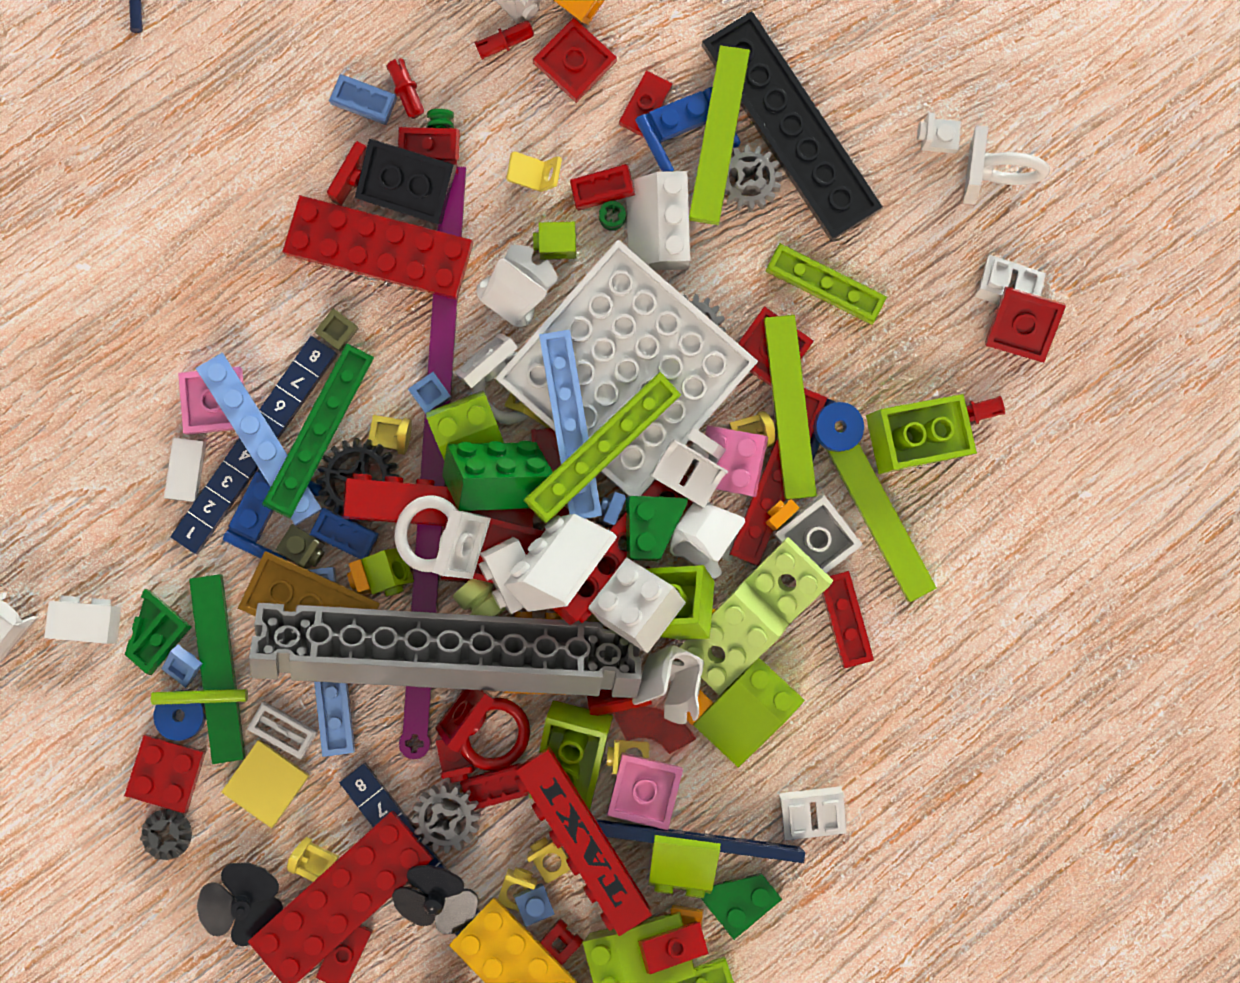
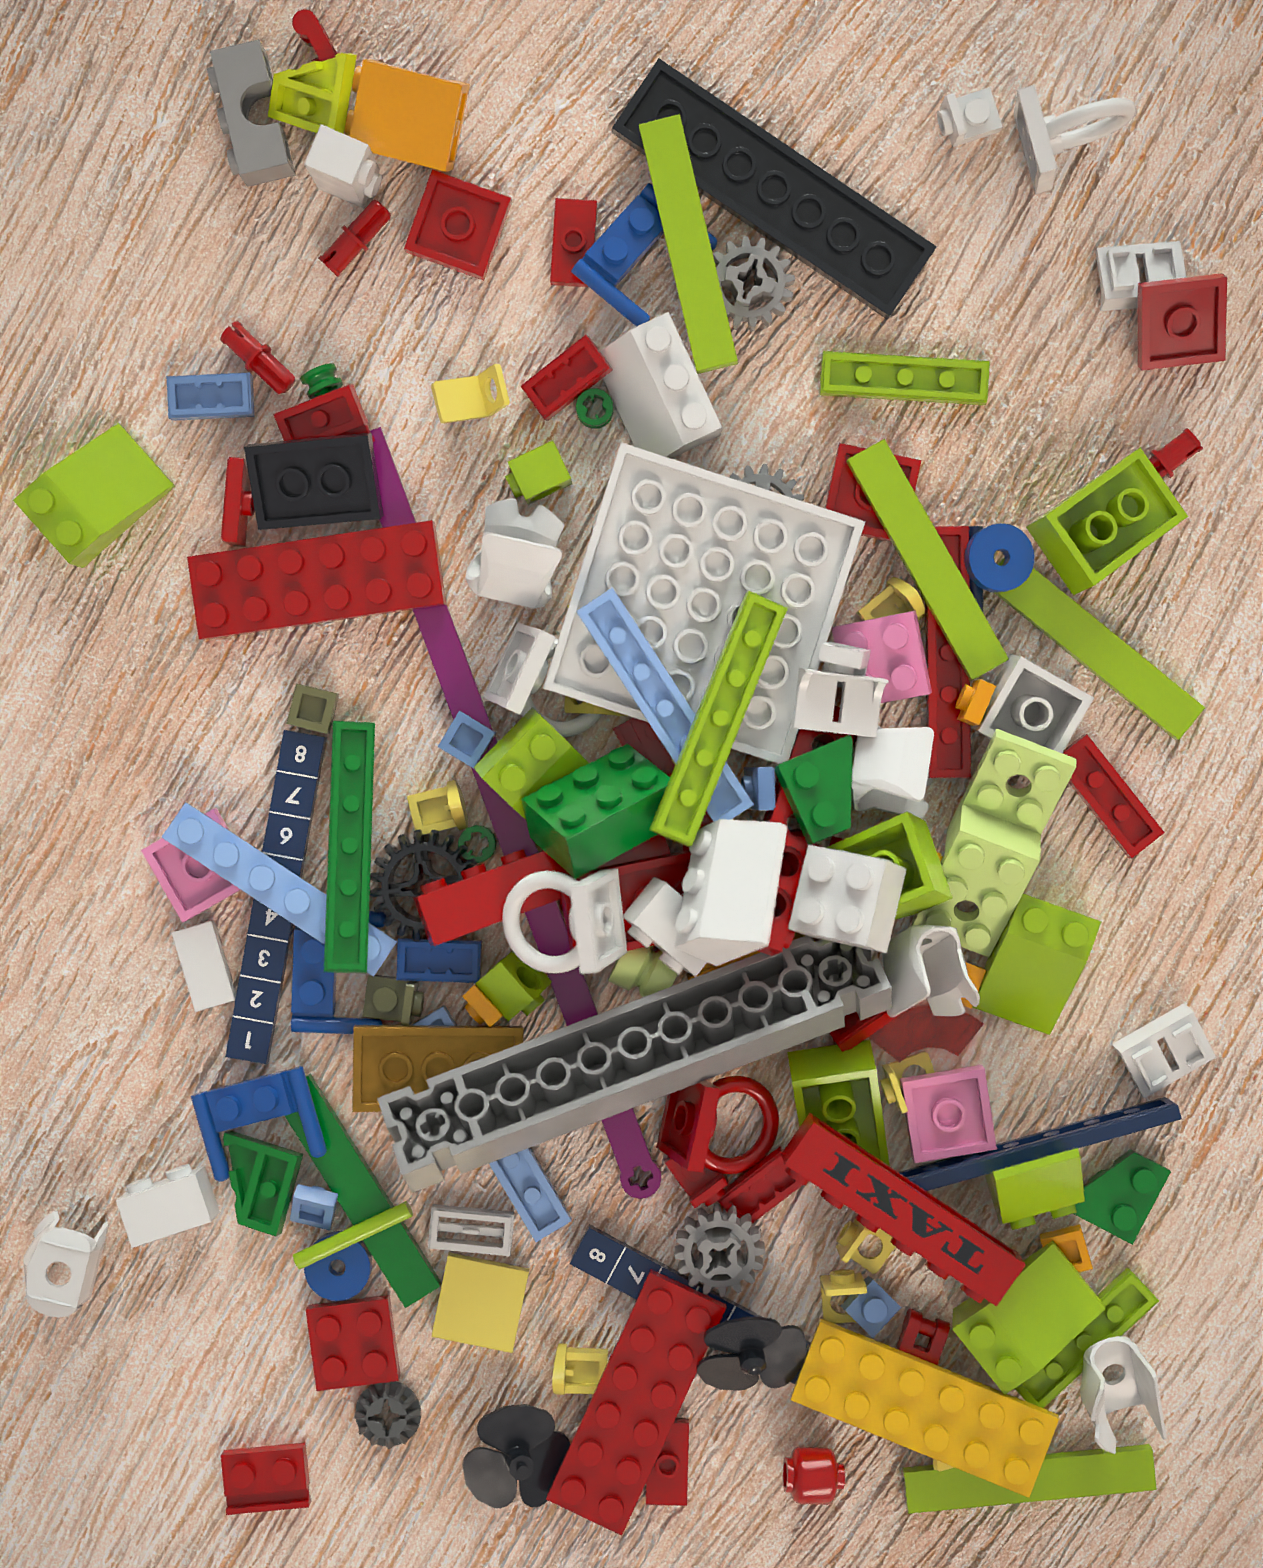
camera: 15 degrees left, 5 degrees up
(60, 843) = (266, 1478): none -> red plate
(175, 576) = (252, 1103): none -> blue plate
(256, 129) = (94, 495): none -> lime slope
(401, 459) = (487, 852): none -> green bush
(673, 947) = (1065, 1288): red plate -> none

